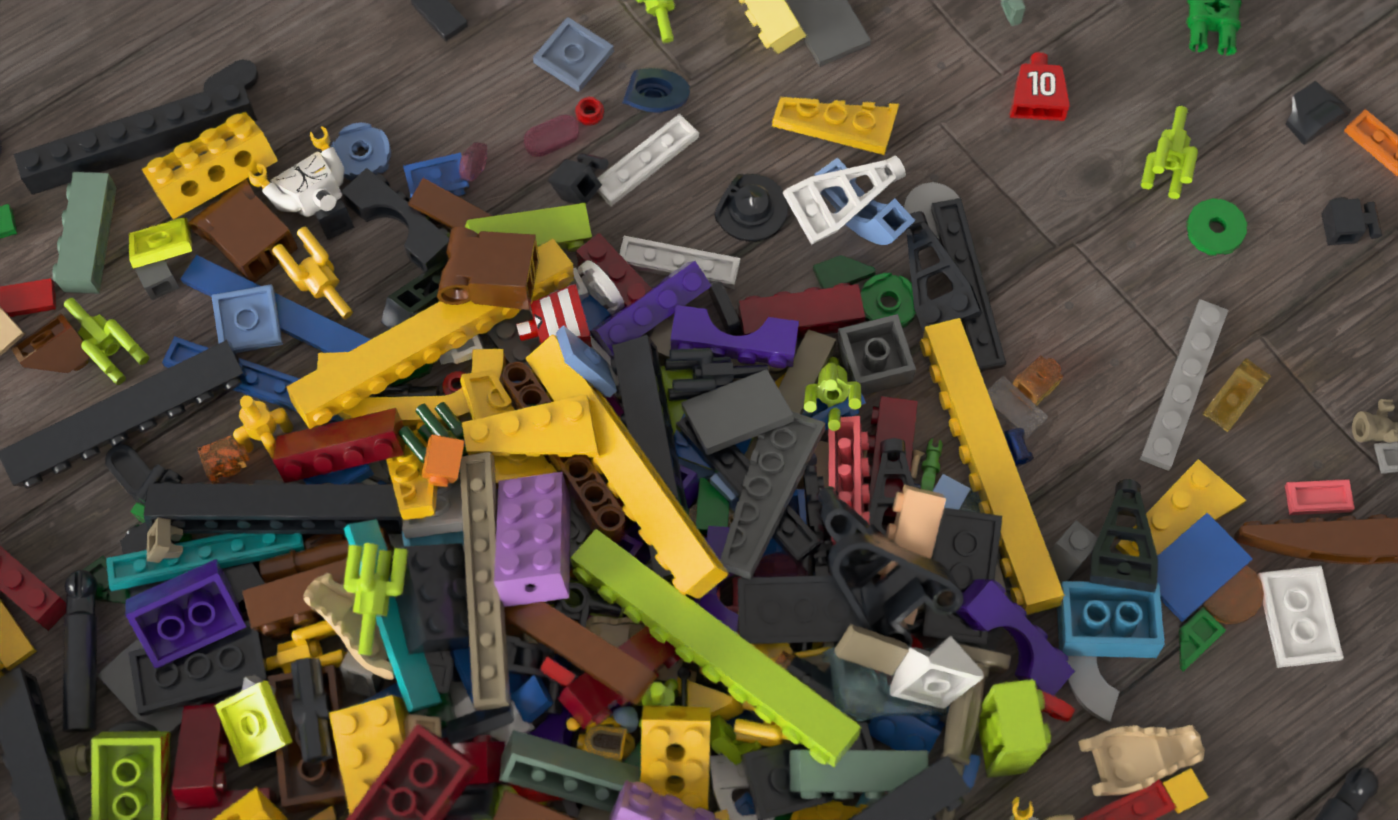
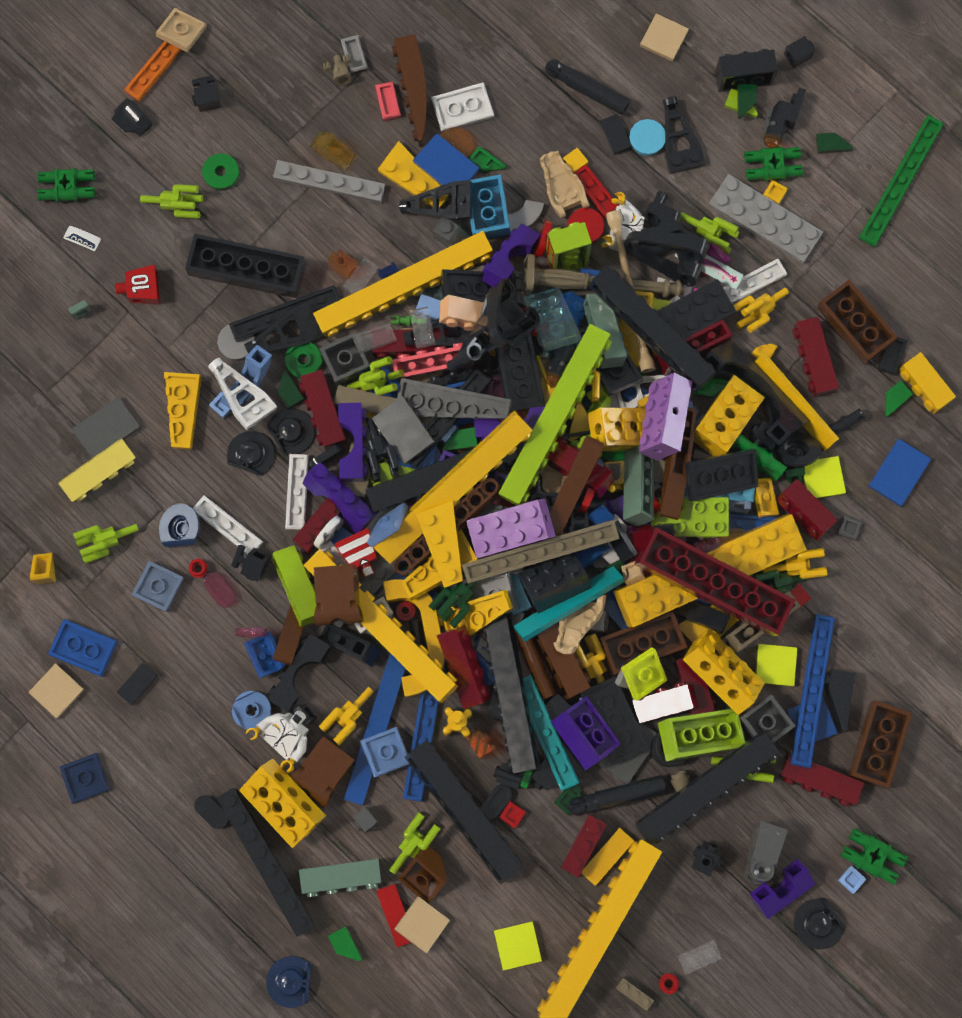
camera: 100 degrees left, 10 degrees up
(104, 491) = (512, 814): none -> red tile
(159, 242) = (342, 823): neon yellow tile -> none
(159, 541) = (546, 757): dark tan tile -> none
(311, 710) = (631, 640): black piece -> none
(373, 588) = (561, 611): lime plant -> none
(442, 460) = (473, 591): orange brick -> none
(776, 266) = (291, 431): none -> black hat
(871, 650) = (542, 326): dark tan tile -> none
(902, 398) = (374, 337): none -> clear tile
(905, 467) = (422, 327): none -> clear plate
(935, 676) = (544, 293): white slope -> none
(1051, 235) = (245, 266): none -> black brick
(1061, 785) = (592, 219): none -> red tile
(1127, 27) = (82, 238): none -> white sticker

